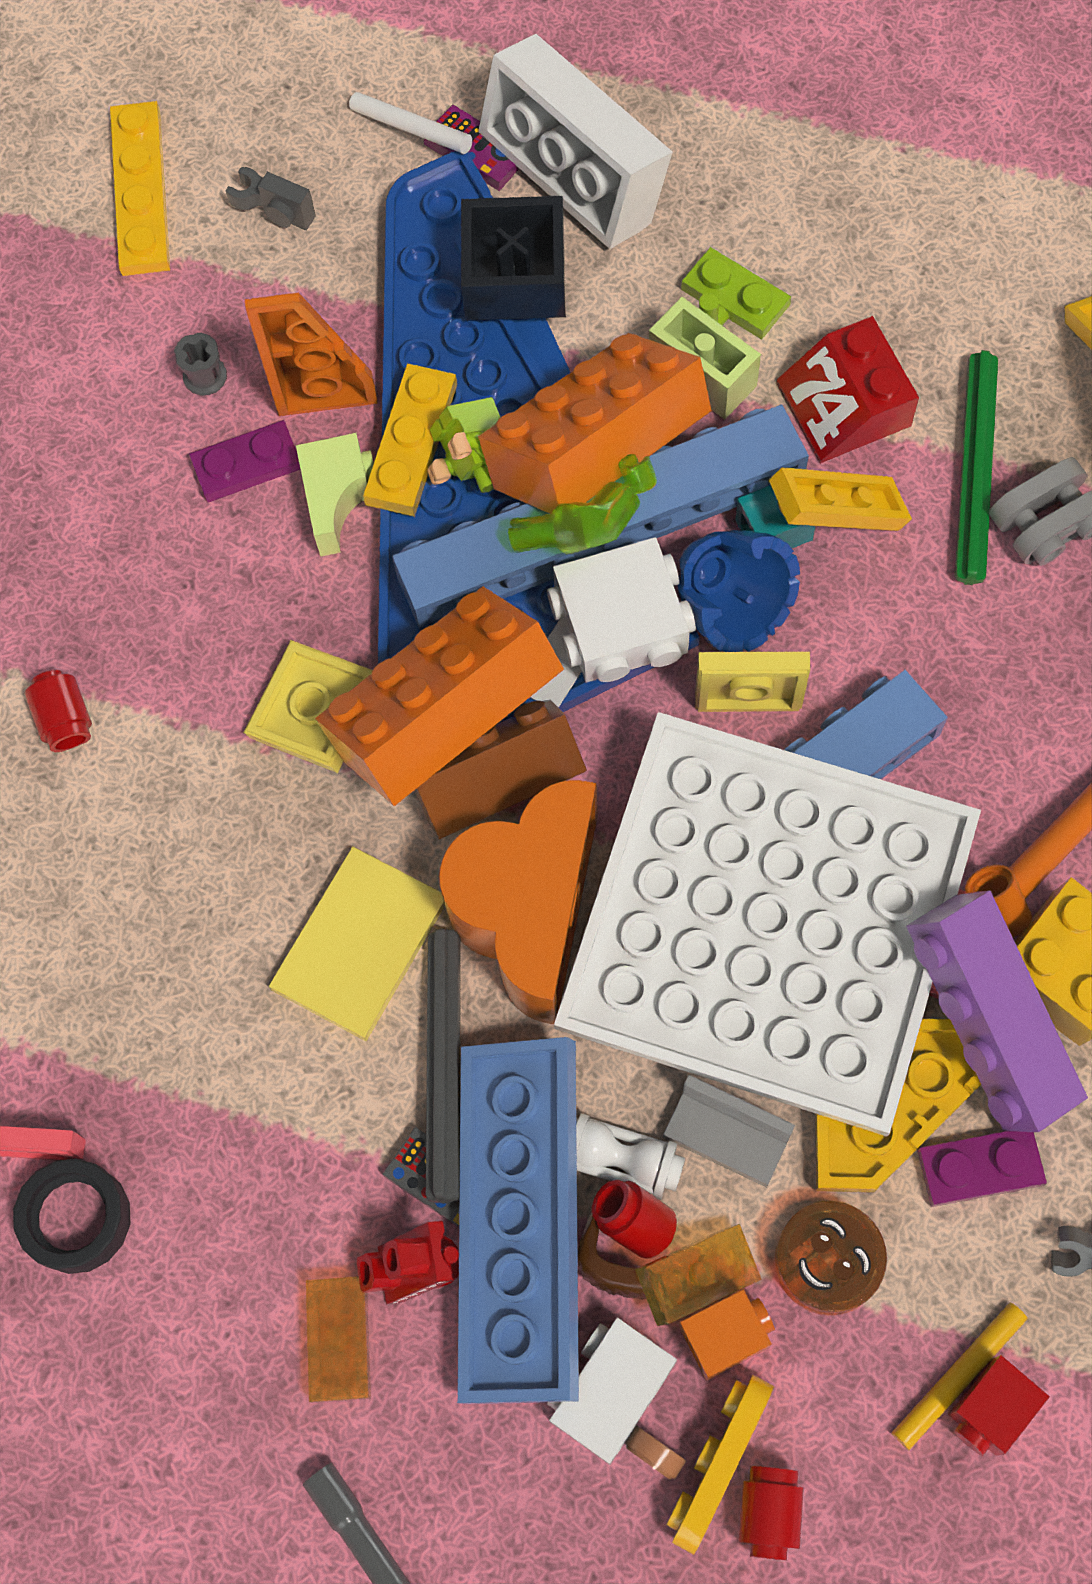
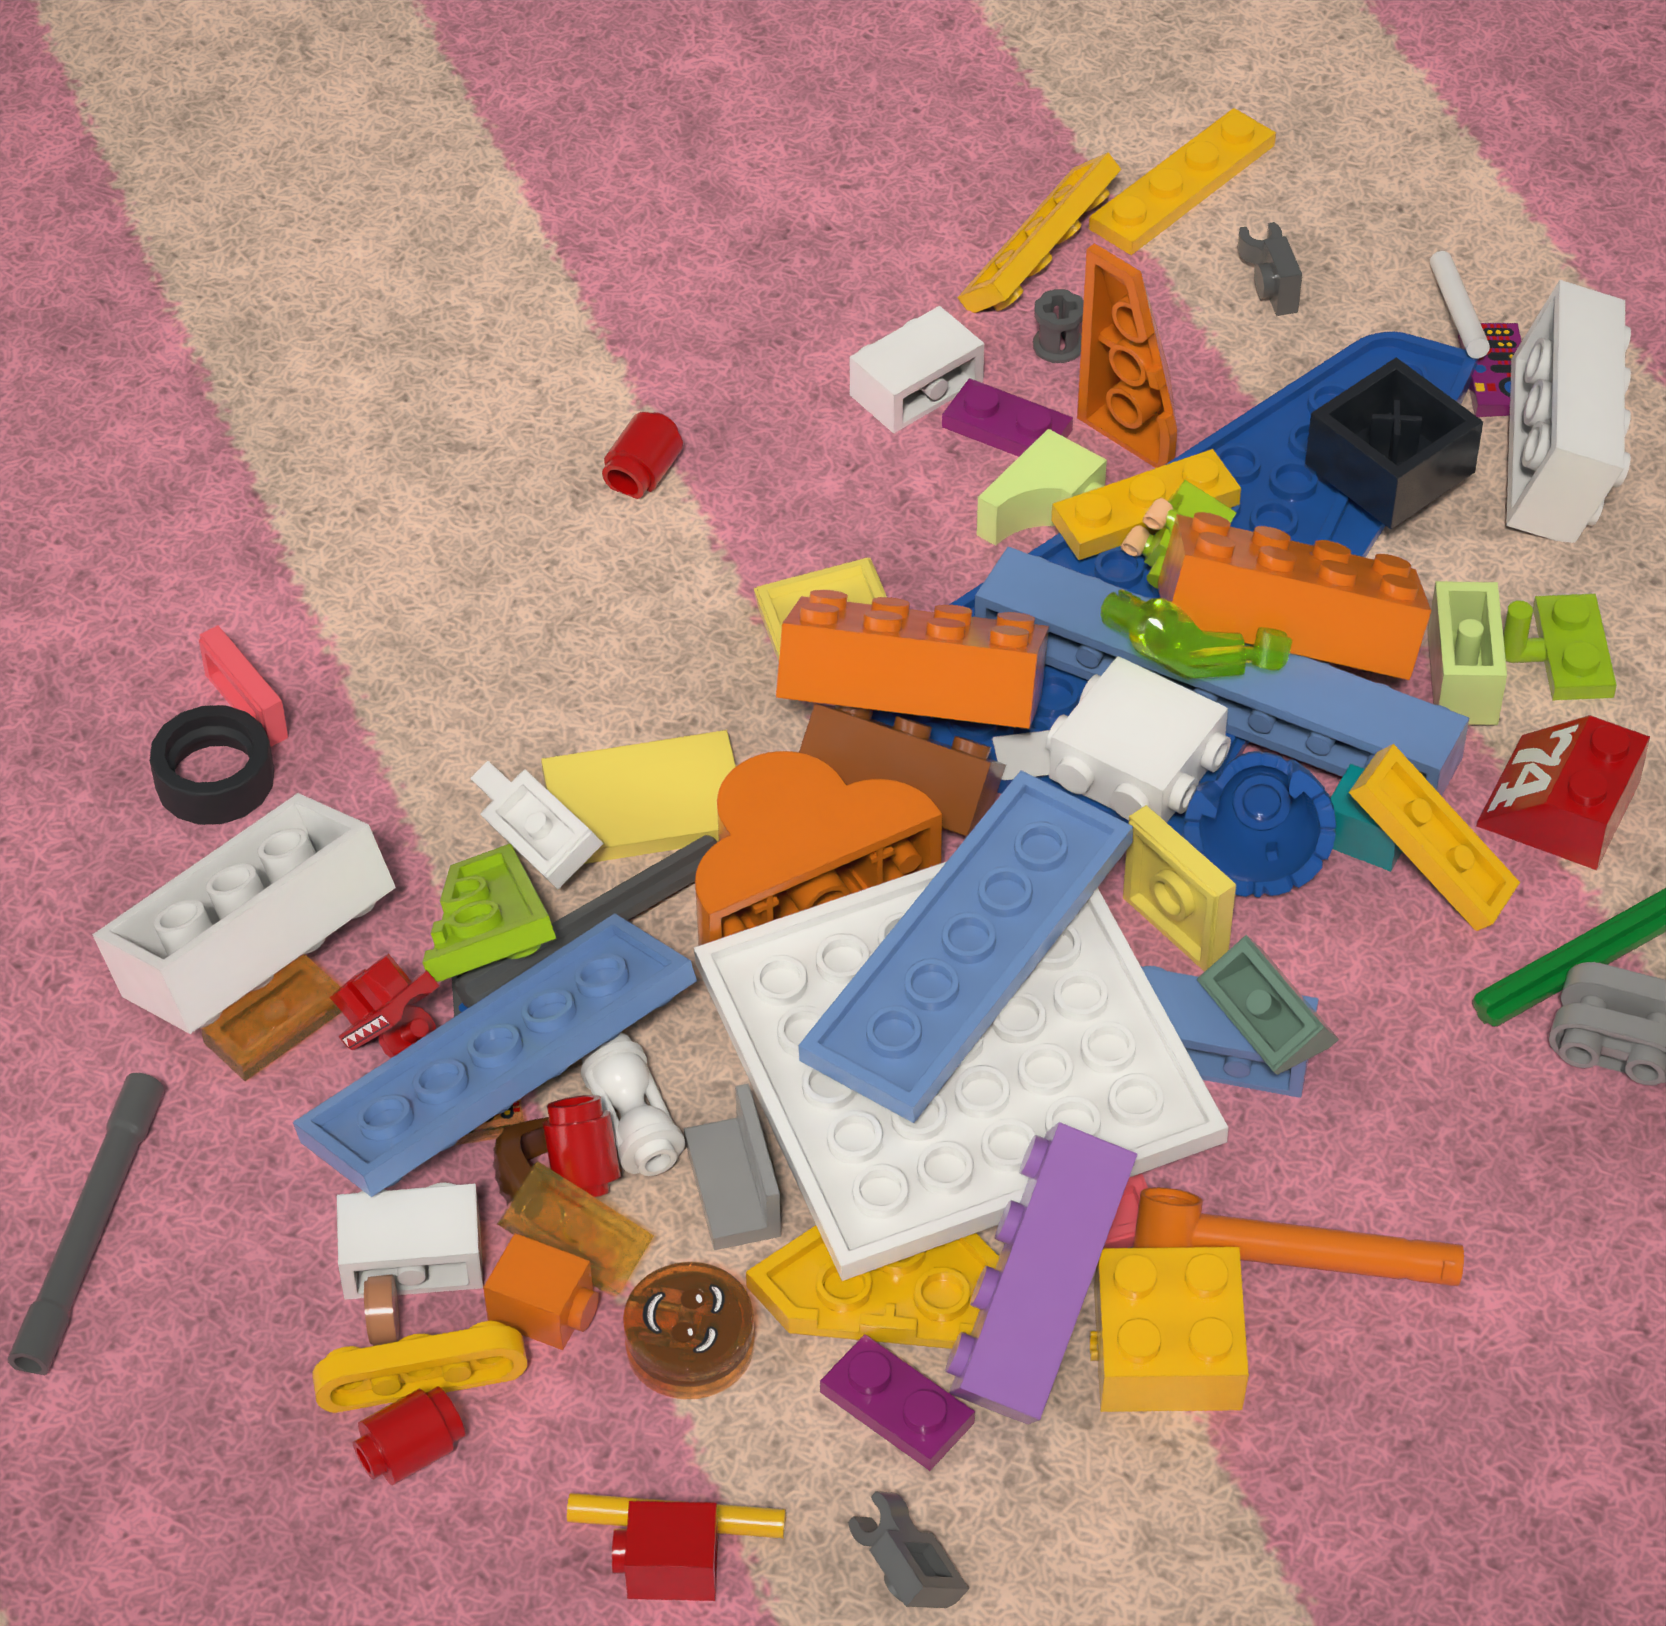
camera: 45 degrees right, 20 degrees down
(106, 309) = (1047, 226): none -> yellow plate
(151, 479) = (915, 368): none -> white brick
(245, 1301) = (244, 912): none -> white brick
(331, 1037) = (536, 824): none -> white hinge
(393, 1133) = (486, 915): none -> lime wing
(718, 855) = (965, 946): none -> medium blue plate
(894, 707) = (1266, 1007): none -> sand green slope

